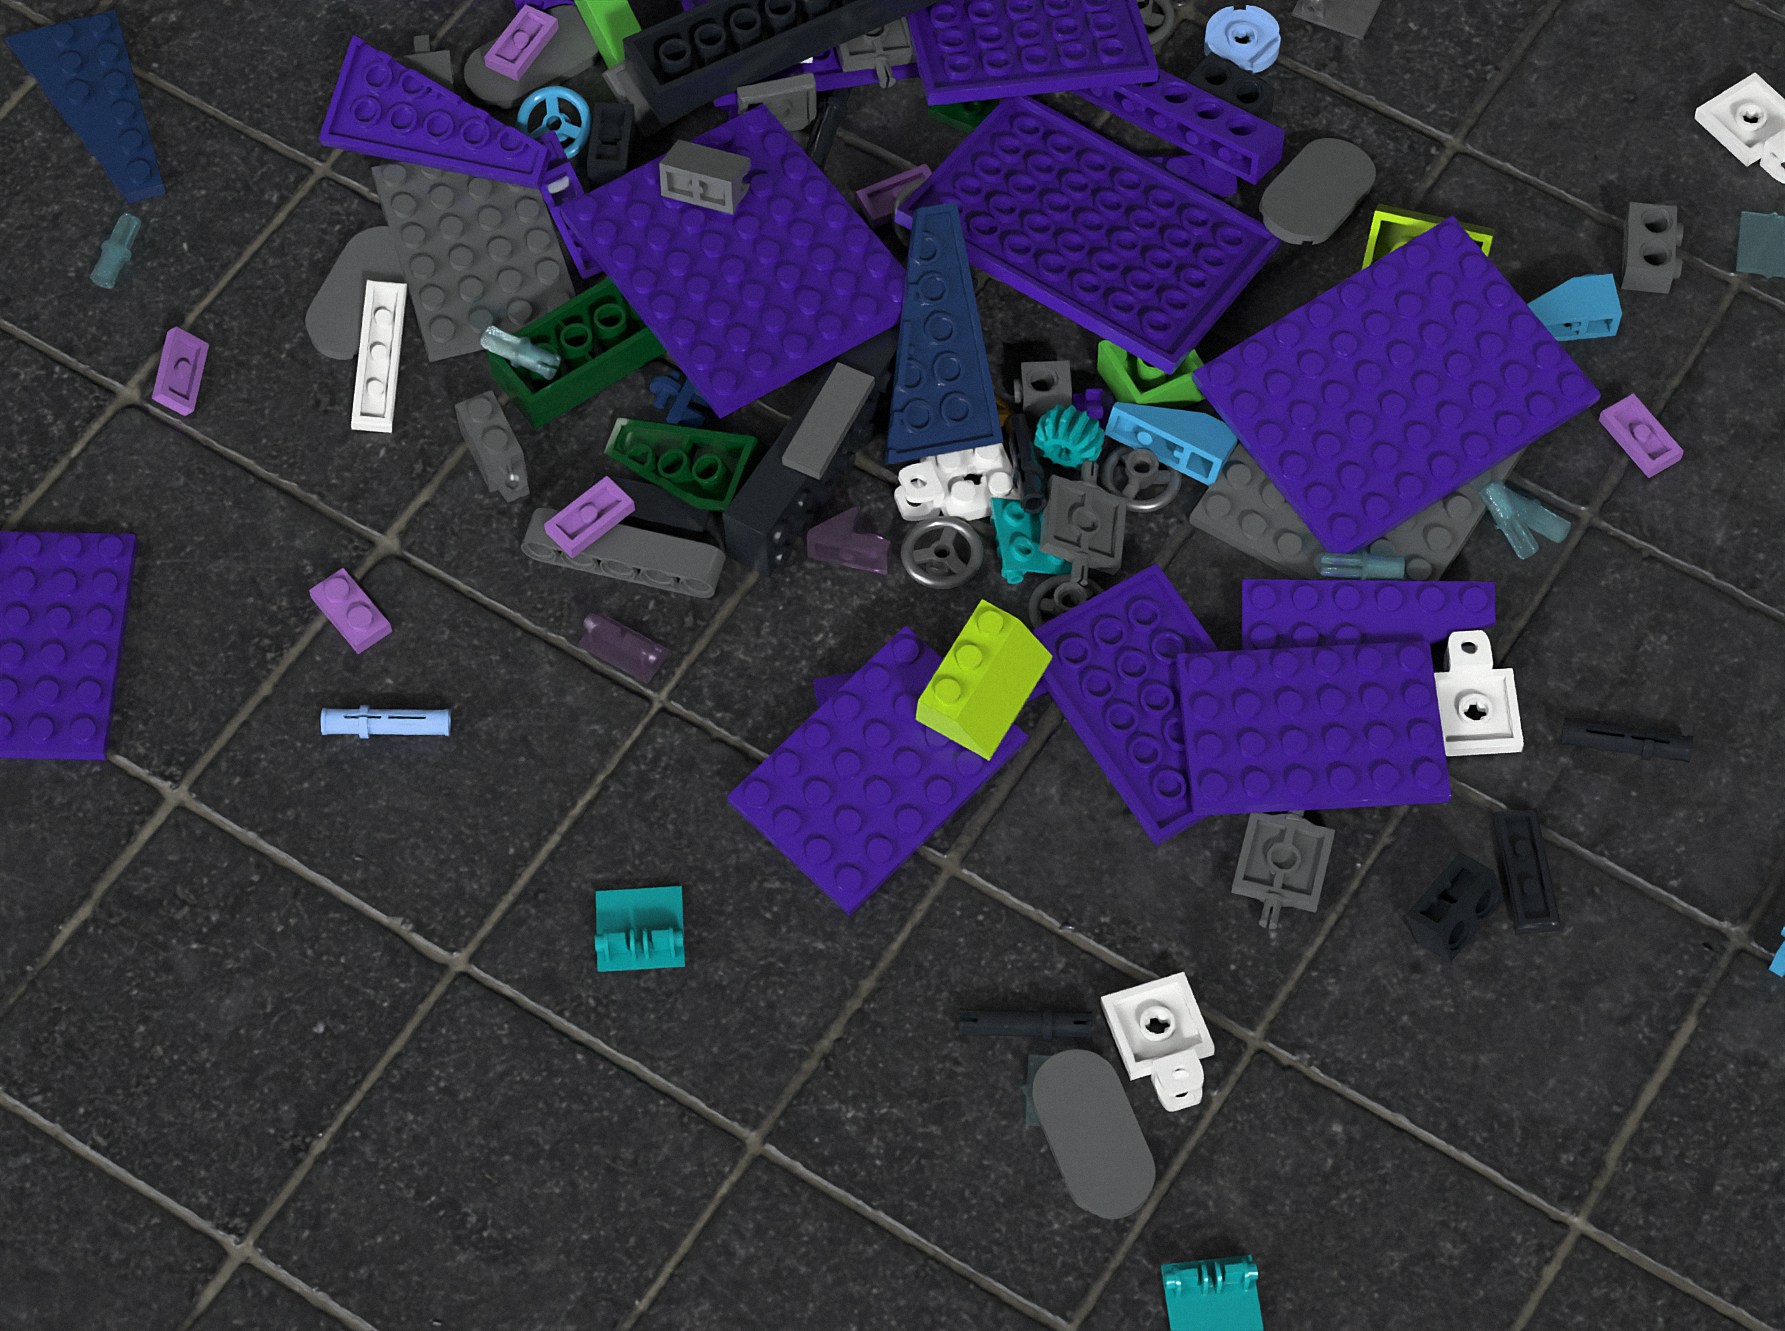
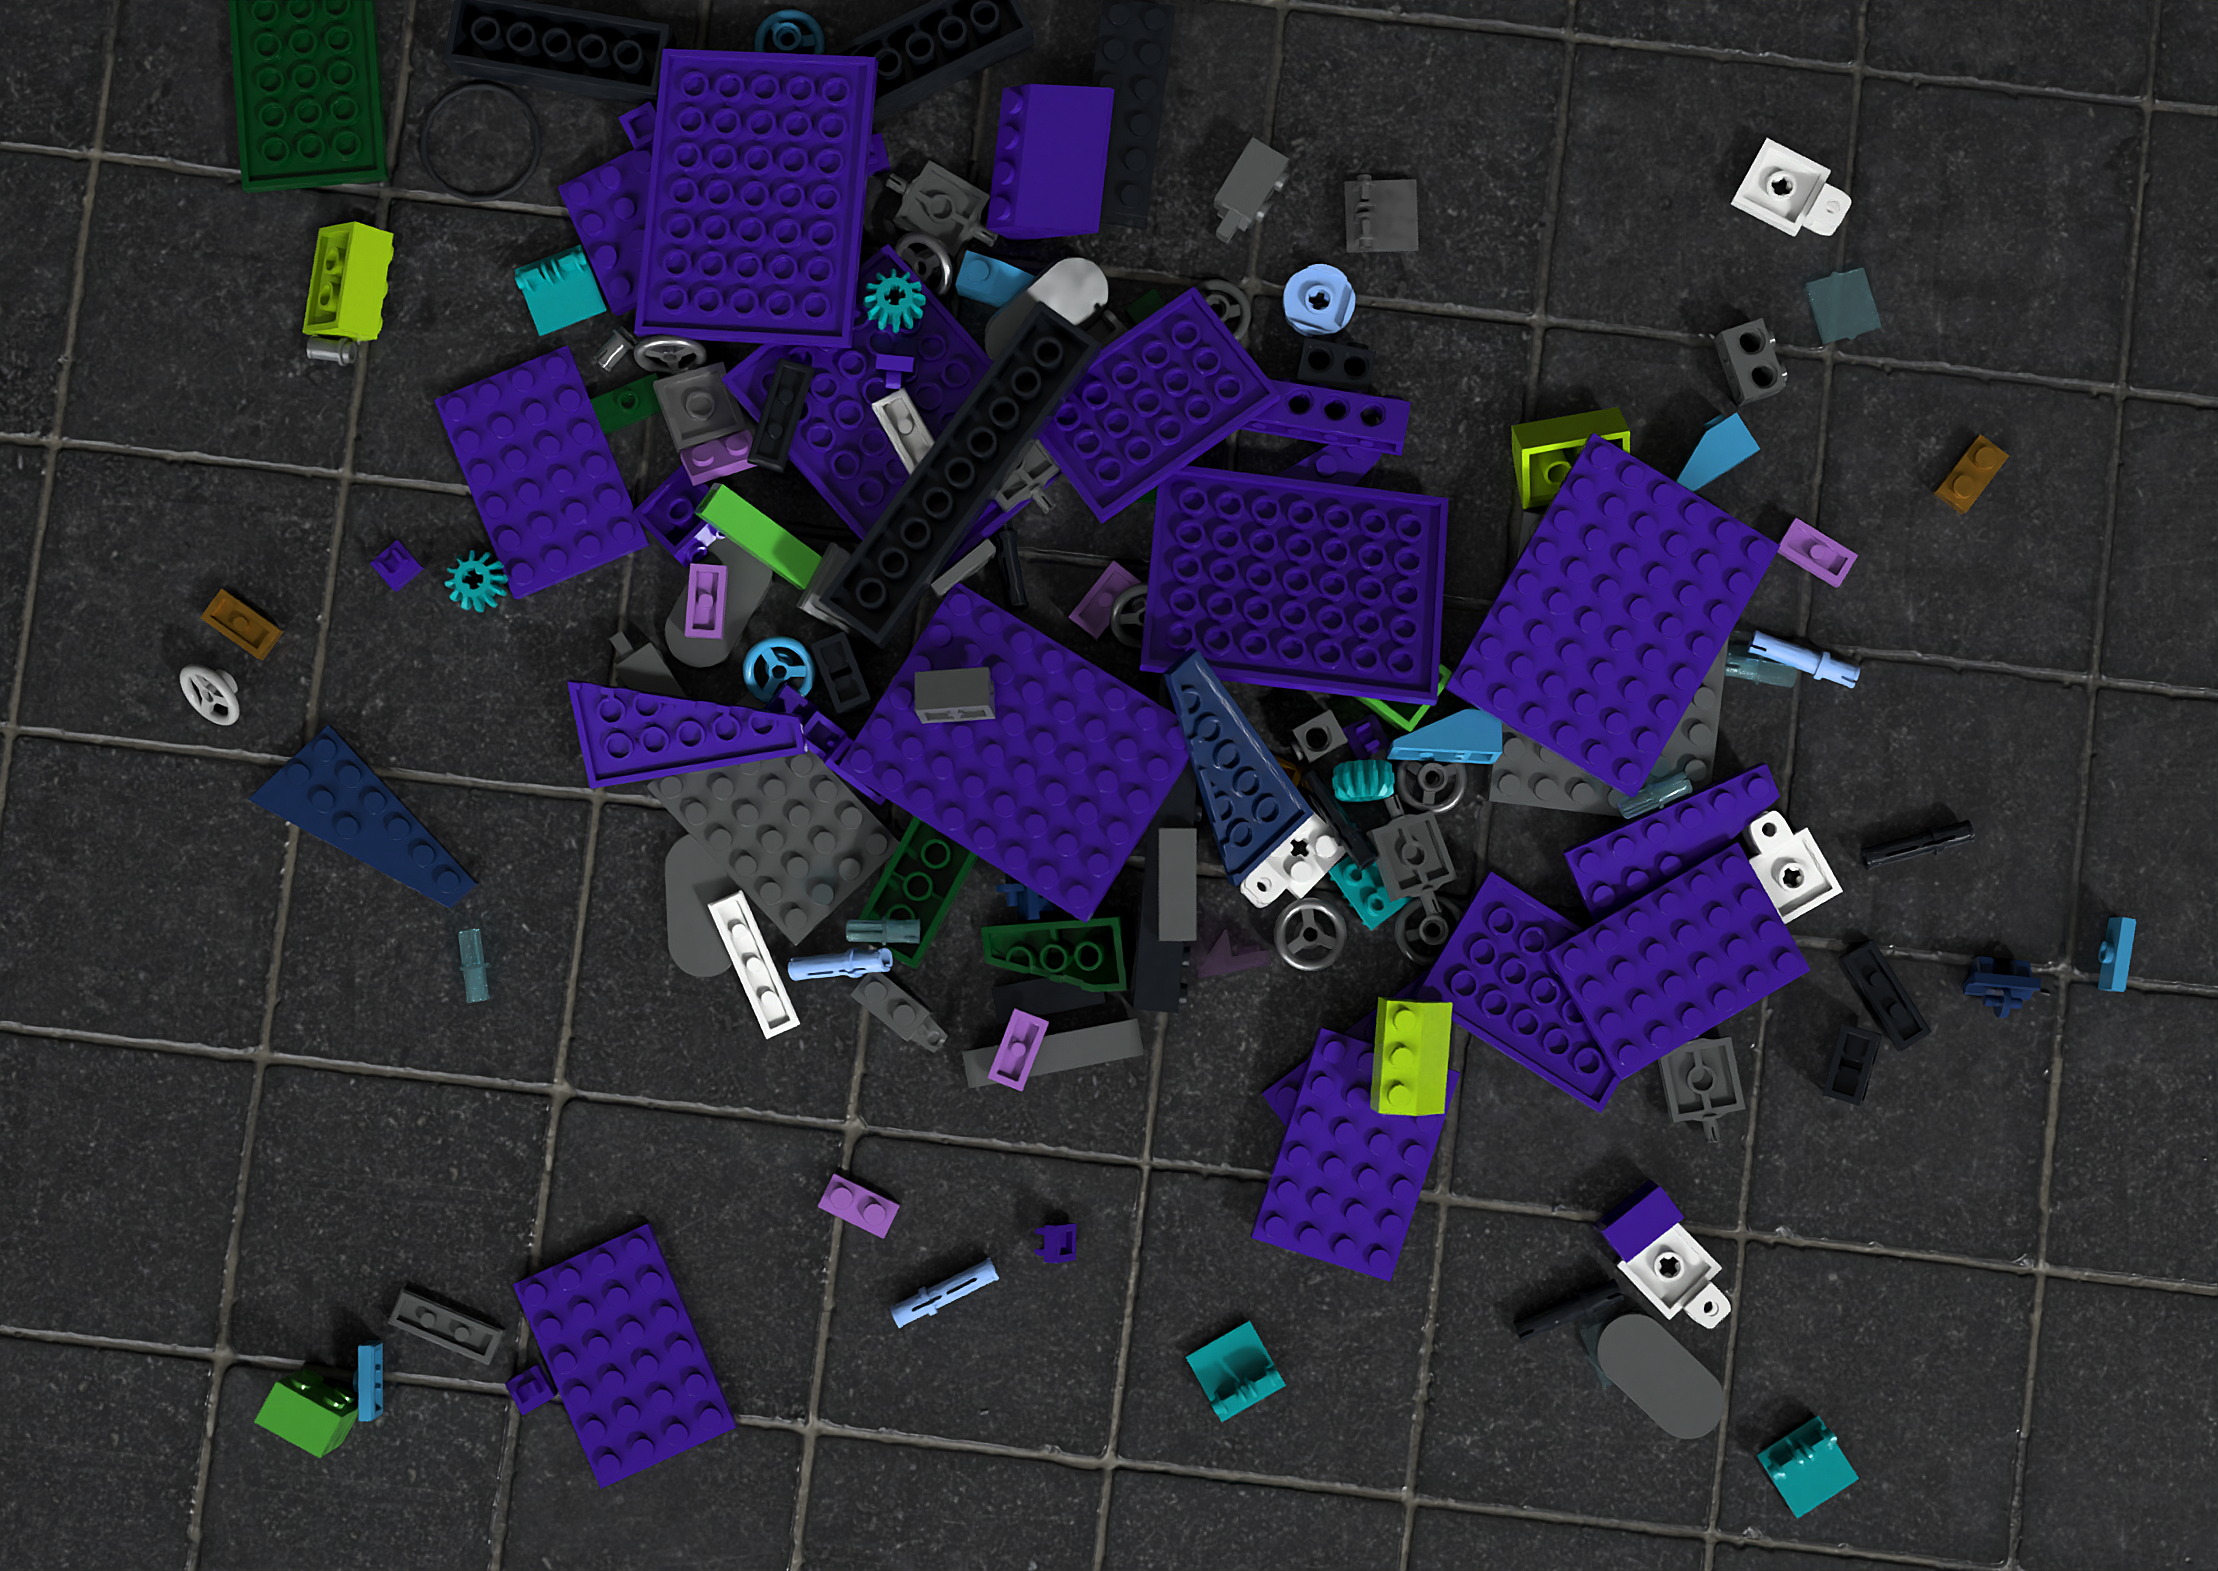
camera: 25 degrees left, 25 degrees up
(180, 371) = (596, 1057): medium lavender plate -> none
(494, 378) = (852, 963): none -> light blue pin
(528, 723) = (1058, 1242): none -> dark purple tile
(622, 647) = (1096, 1134): clear purple hinge -> none
(1146, 962) = (1638, 1220): none -> dark purple hinge
(1317, 191) = (1455, 436): dark grey tile -> none
(1509, 518) = (1746, 688): clear light blue axle -> none
(1596, 533) = (1816, 663): none -> light blue pin
(1658, 908) = (2001, 990): none -> dark blue hips

